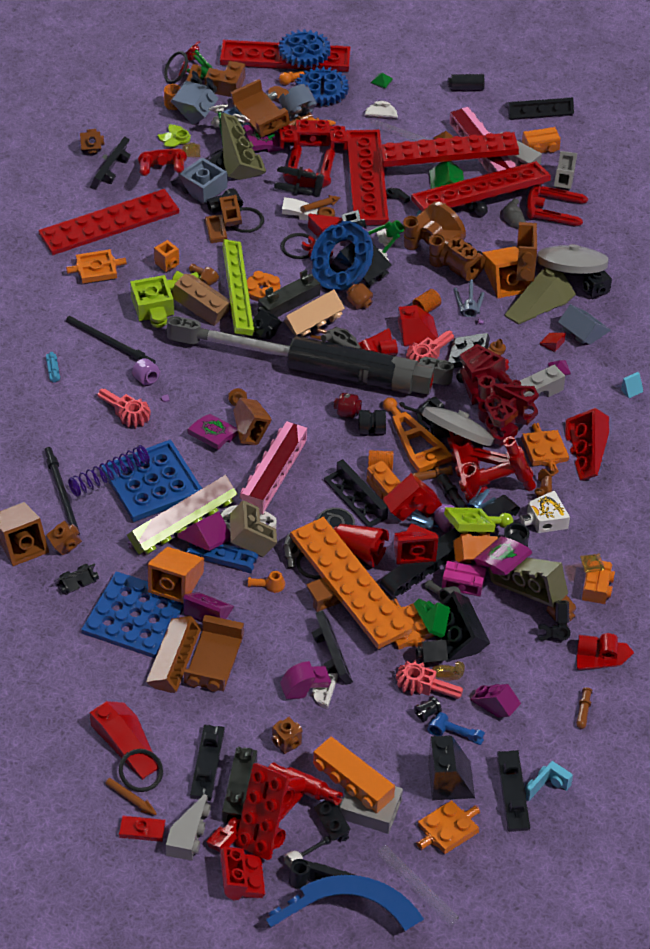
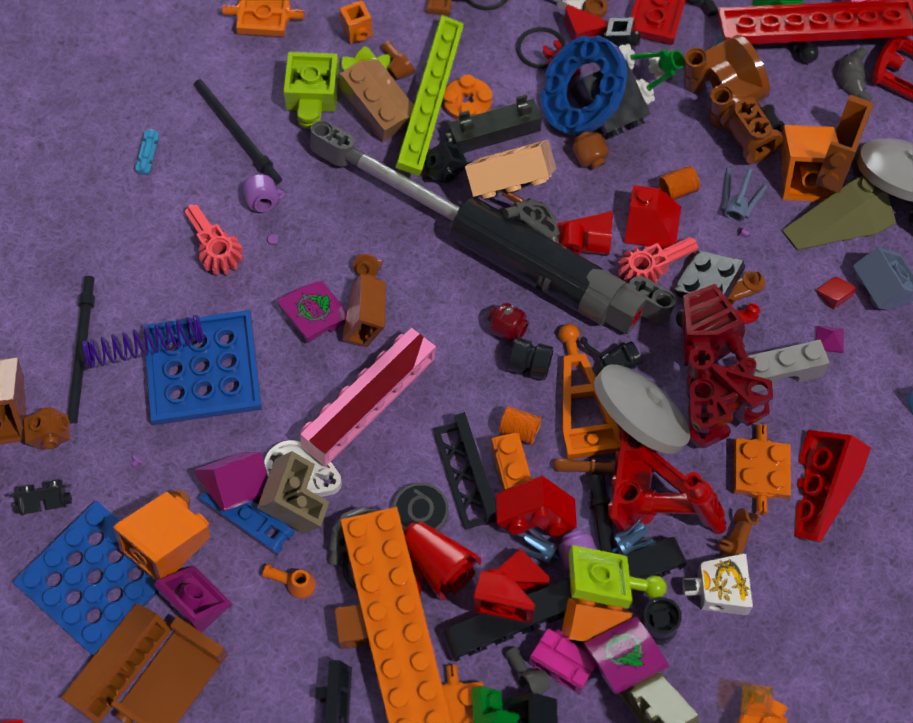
camera: 20 degrees right, 15 degrees up
(182, 514) = (214, 438): brick -> none

